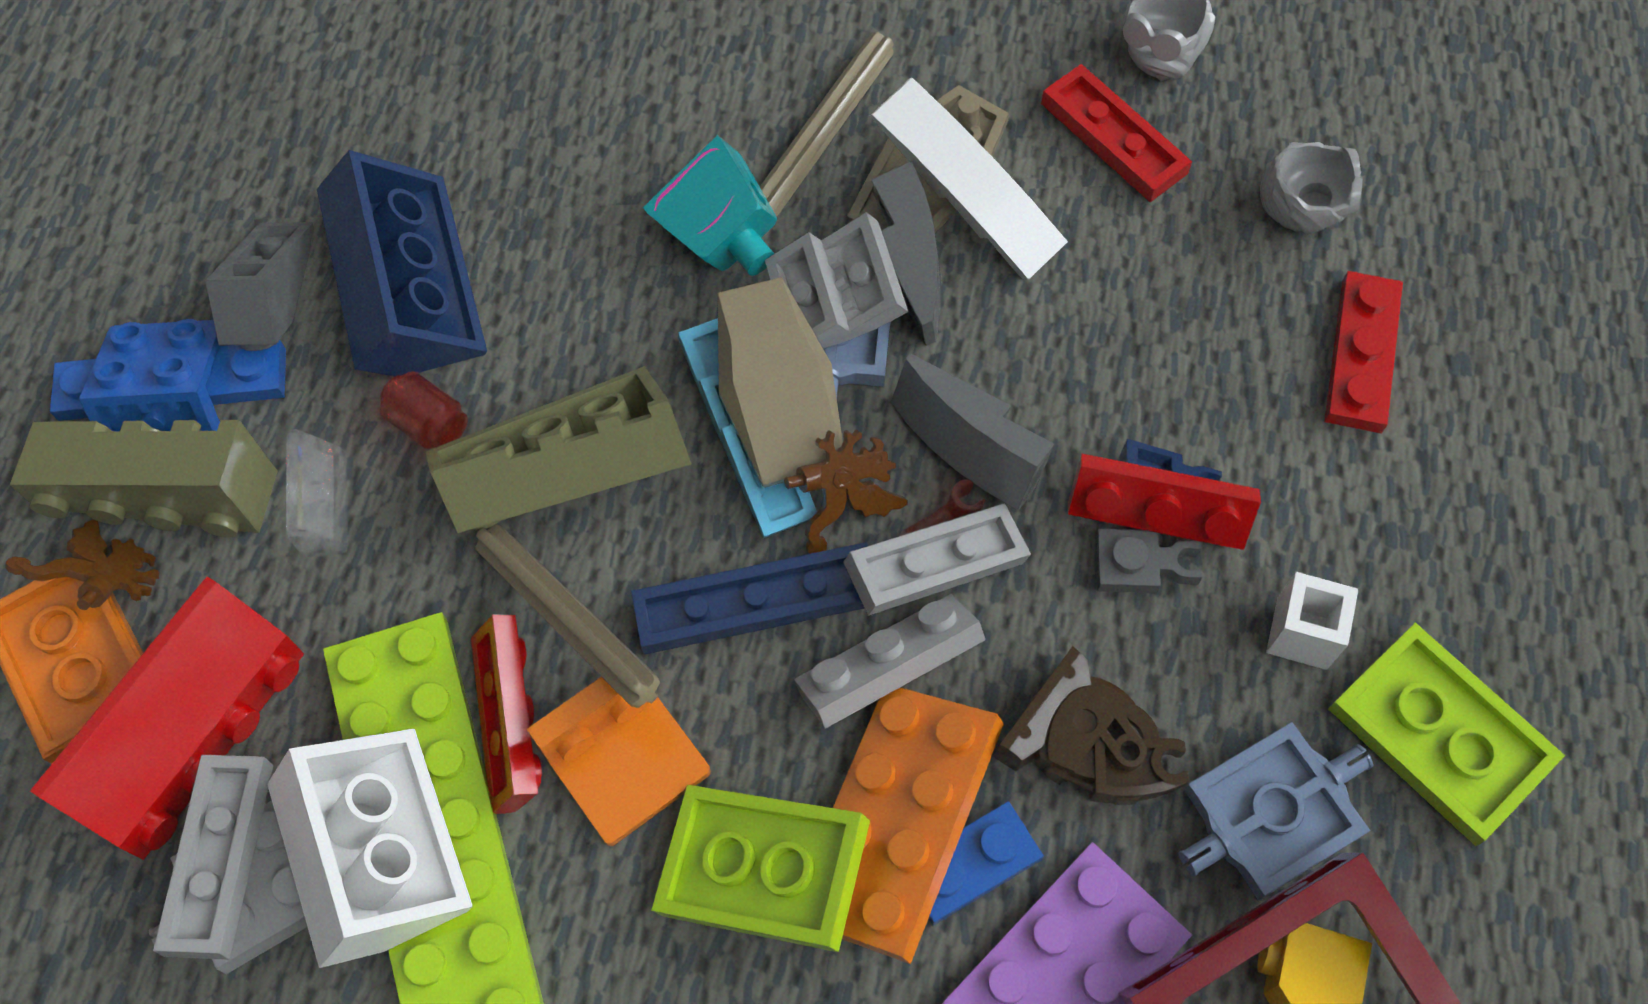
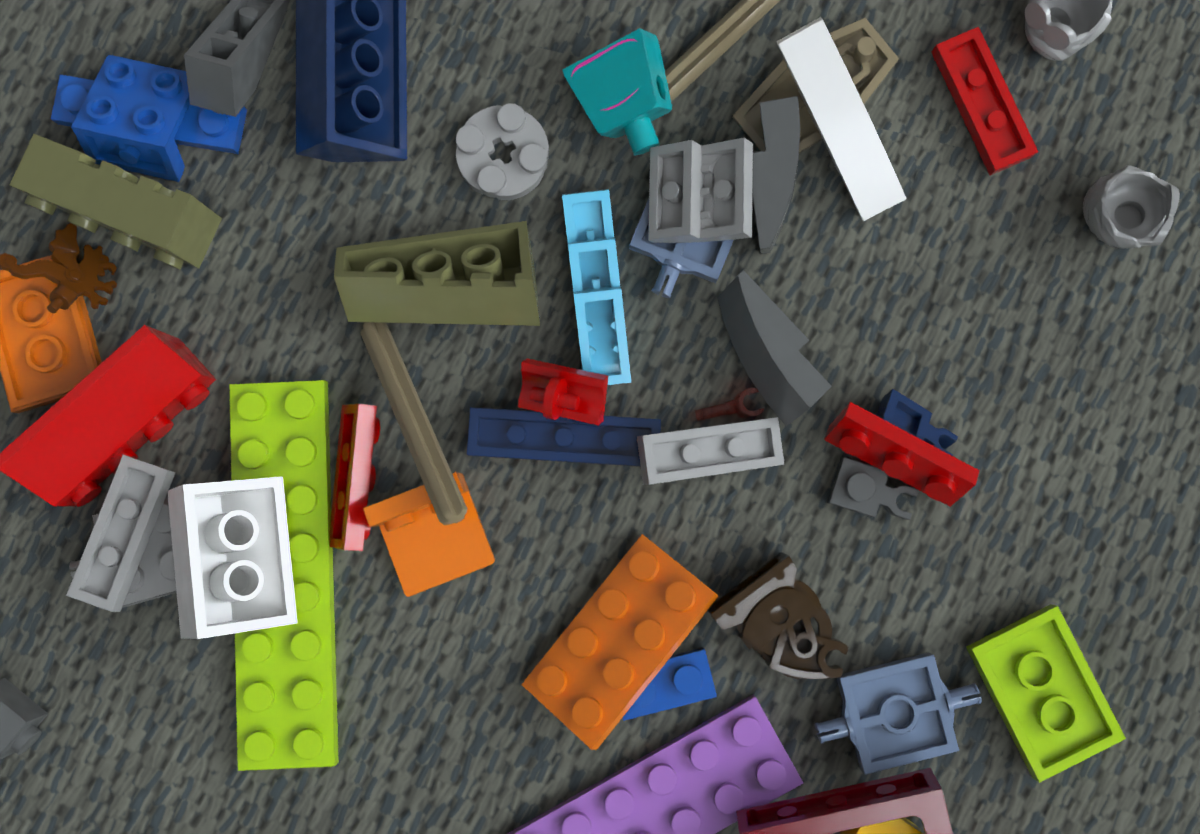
camera: 15 degrees right, 20 degrees up
(316, 495) = (246, 253): clear slope -> none
(422, 410) = (343, 204): clear red brick -> none
(598, 286) = (493, 176): none -> light grey plate
(740, 537) = (563, 392): none -> red hips
(762, 866) = (511, 652): lime plate -> none
(774, 380) = (627, 270): dark tan piece -> none
(840, 483) = (658, 363): reddish brown piece -> none
(889, 660) = (650, 517): light grey plate -> none
(1312, 621) = (979, 585): white brick -> none
(1364, 352) = (1113, 363): red plate -> none

